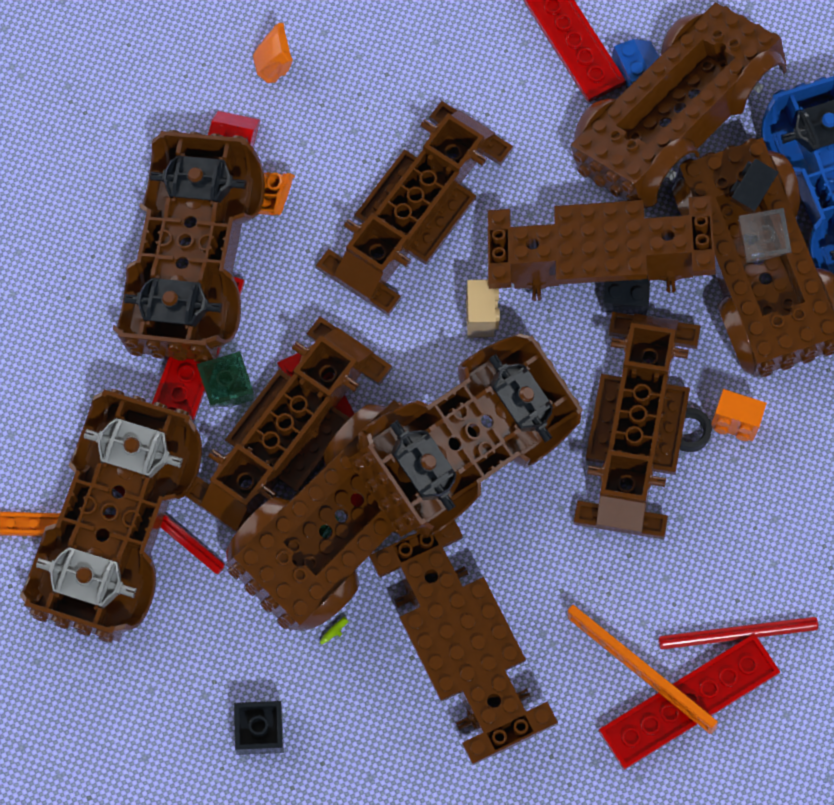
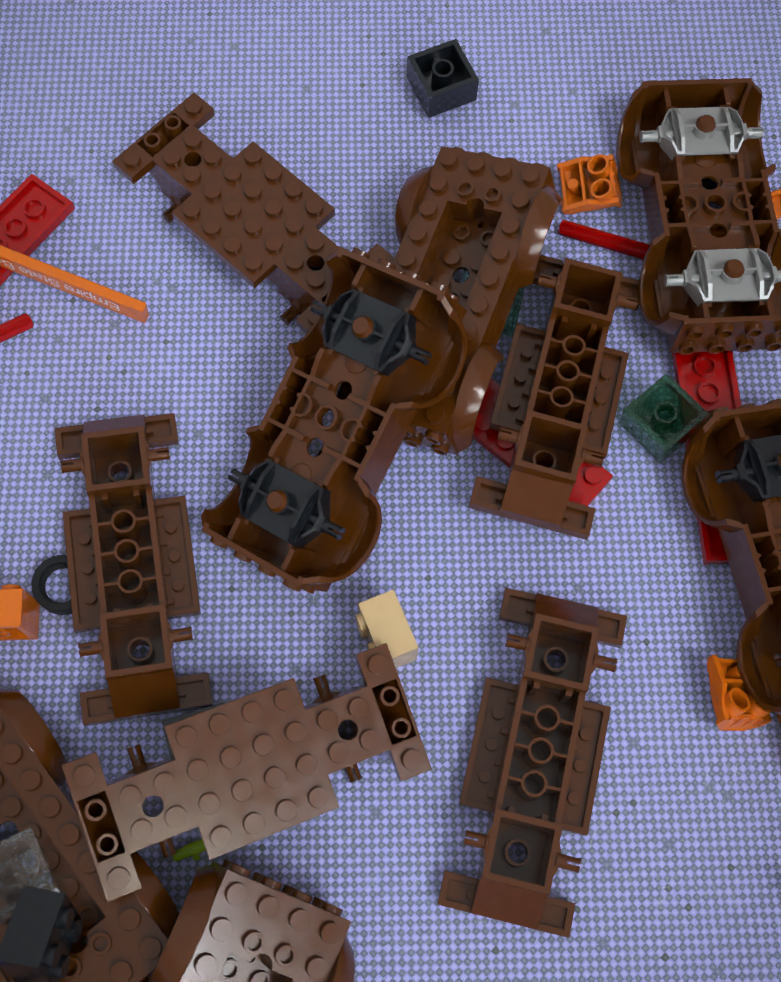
camera: 160 degrees right, 0 degrees up
(183, 589) = (589, 184): none -> orange slope

